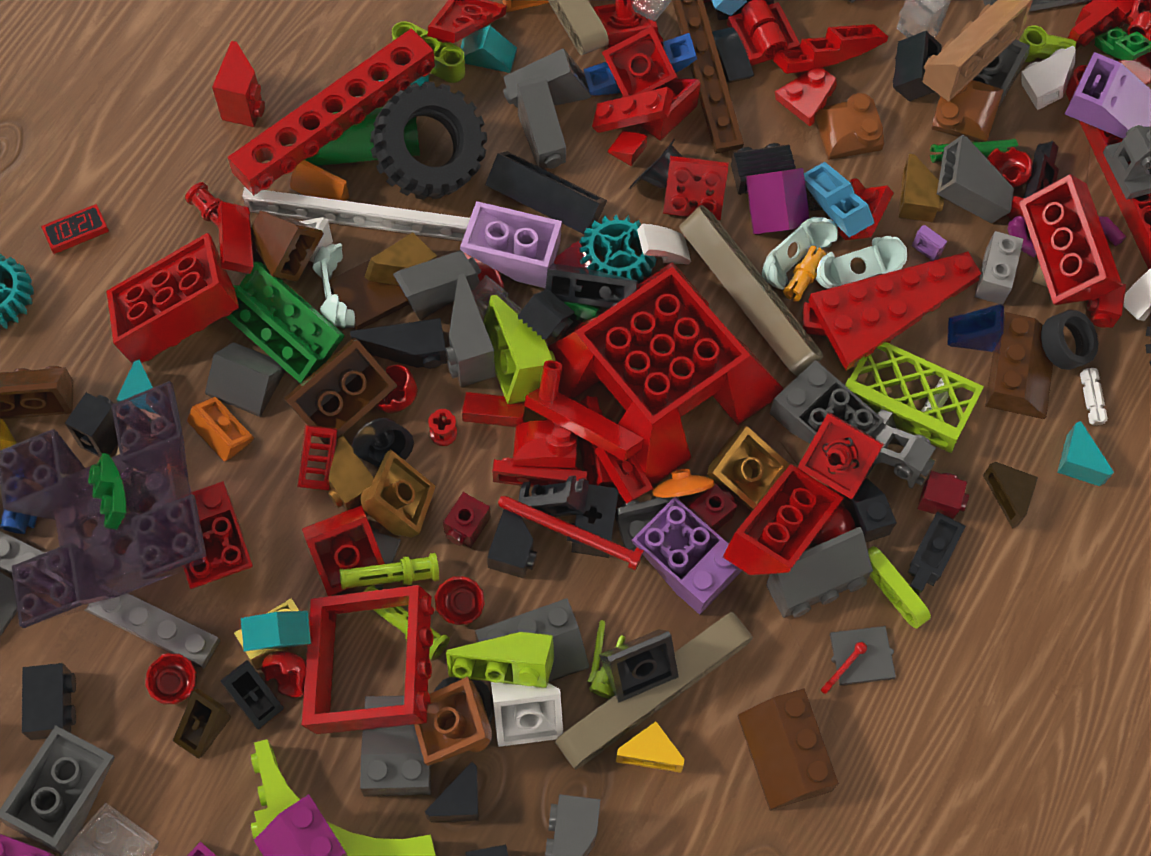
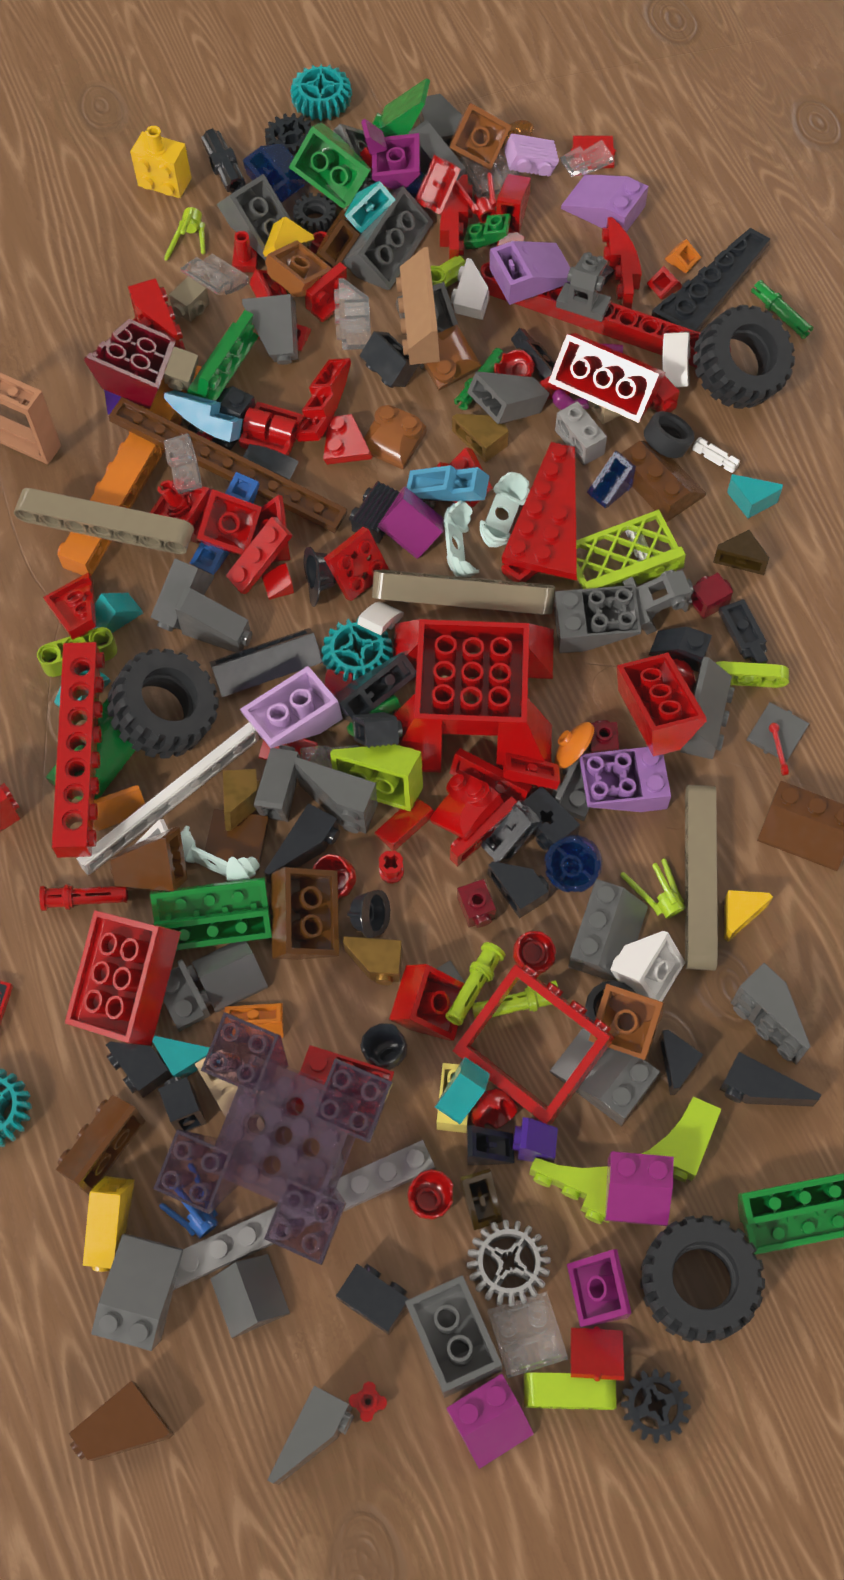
camera: 45 degrees left, 0 degrees up
(106, 370) = (141, 1064): none -> black slope
(108, 487) = (259, 1121): green slope -> none
(159, 775) = (520, 1271): none -> light grey gear
(195, 358) = (183, 999): none -> dark grey bracket
(235, 237) = (115, 894): red tile -> none
(273, 542) = (384, 1046): none -> black hair
(283, 729) = (535, 1140): none -> dark purple slope
(317, 431) = (329, 965): red slope -> none
(398, 496) = (423, 935): pearl gold slope -> none
(508, 659) = (615, 947): lime slope -> none
(568, 569) = (573, 863): none -> clear blue cylinder
(572, 531) = (602, 814): red bar -> none
(578, 418) = (473, 769): red piece -> none
(640, 664) = (682, 866): black slope -> none
(747, 467) = (591, 696): pearl gold slope -> none
(804, 273) = (478, 550): light orange pin -> none
(839, 457) = (656, 636): red plate -> none
(929, 243) = (525, 458): medium lavender tile -> none

